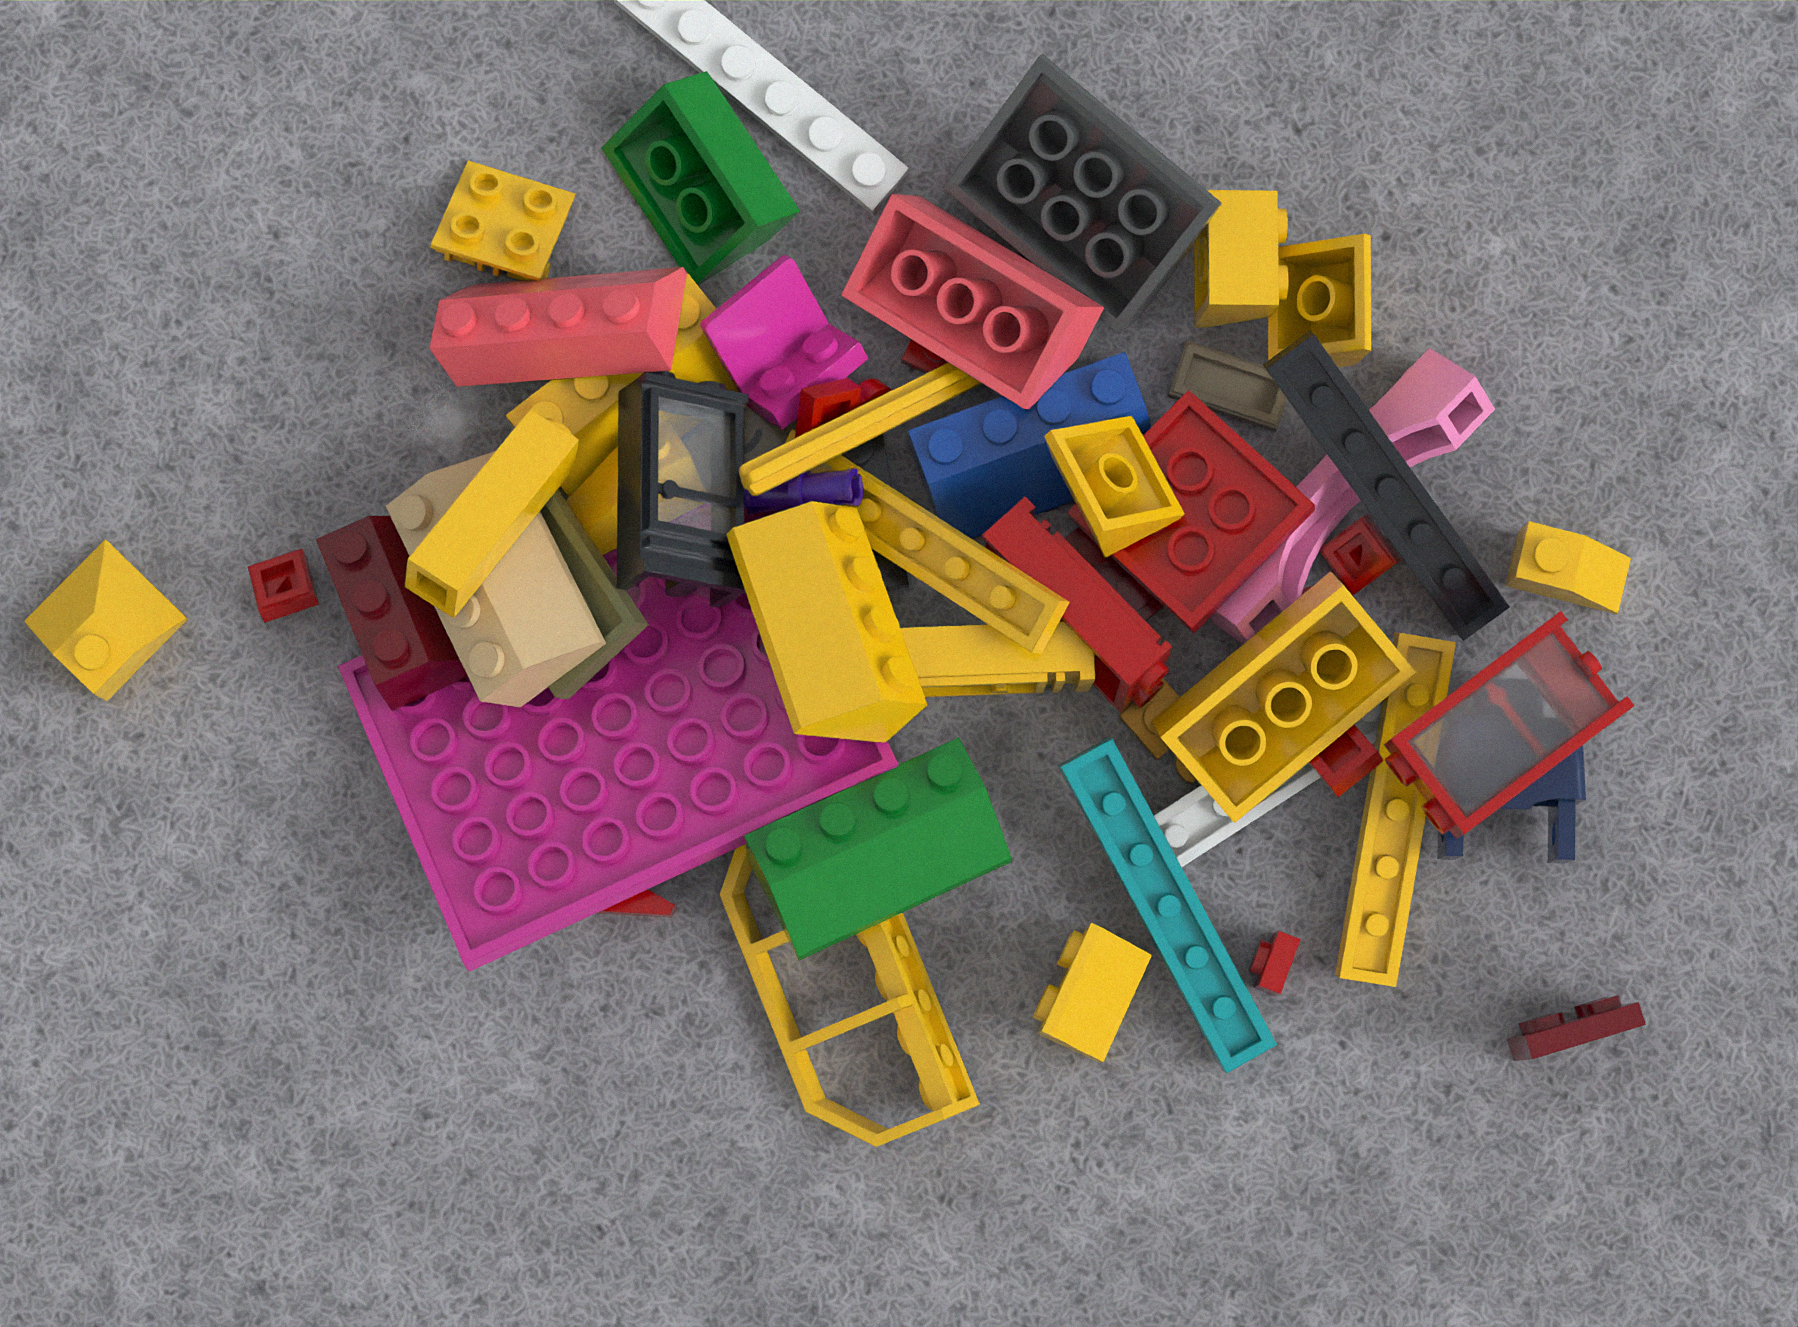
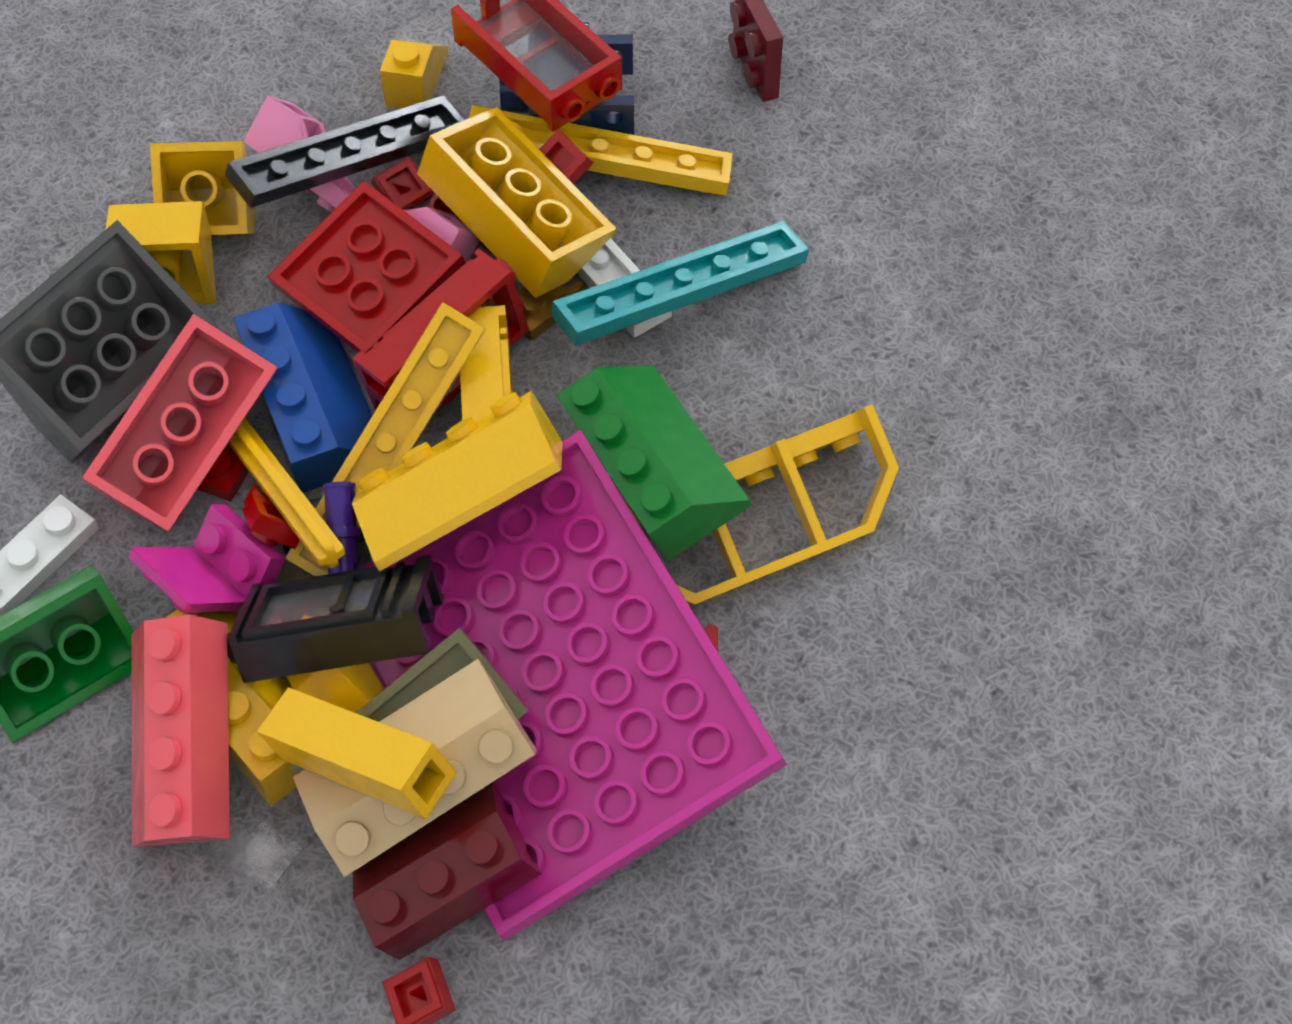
camera: 90 degrees left, 25 degrees down
(502, 223) = (76, 817): yellow hinge -> none
(1092, 993) = (753, 335): yellow slope -> none
(1114, 481) = (345, 315): yellow slope -> none
(1229, 385) = (252, 287): dark tan tile -> none
(1273, 962) = (719, 221): red plate -> none

